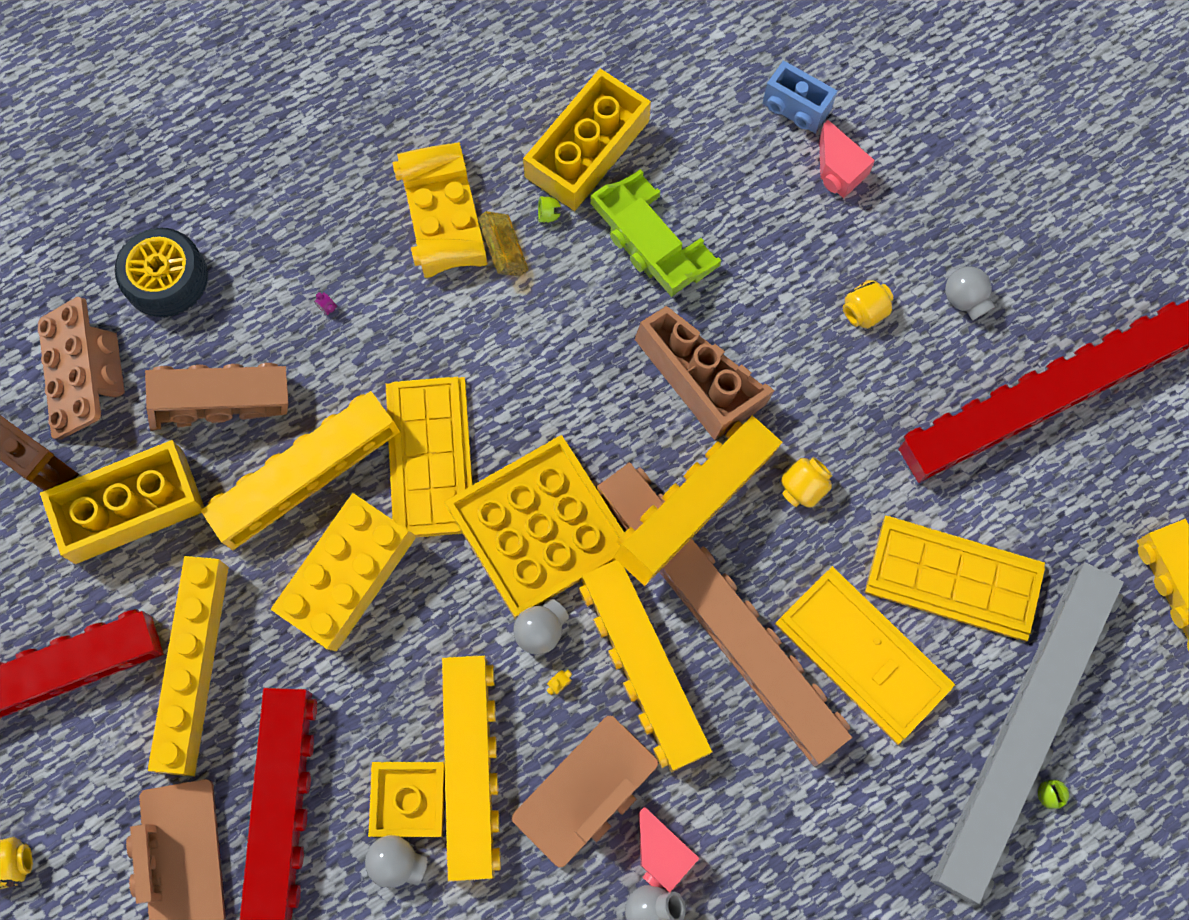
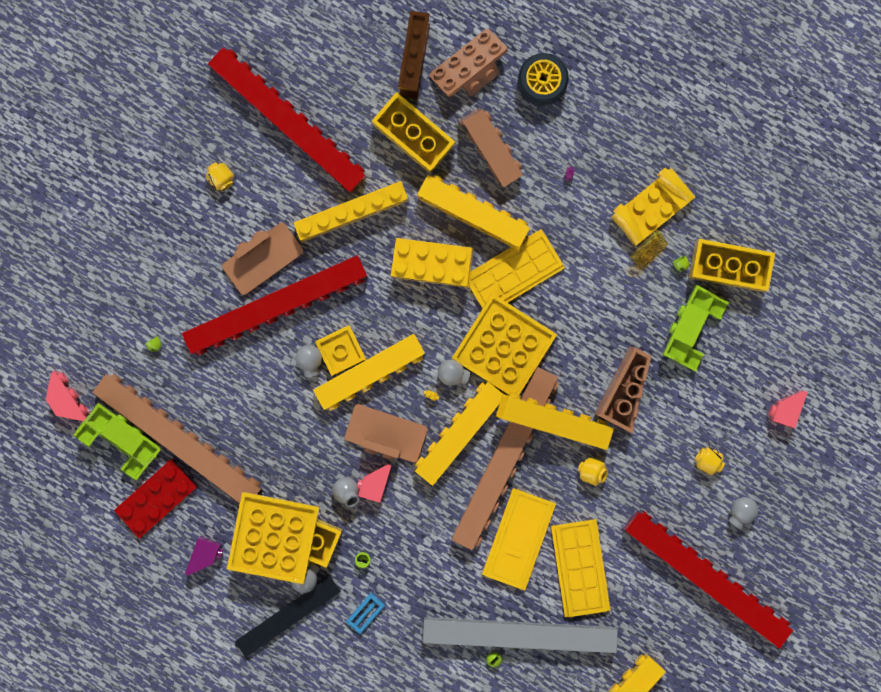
camera: 65 degrees right, 15 degrees up
(799, 97) = (815, 369): medium blue brick -> none

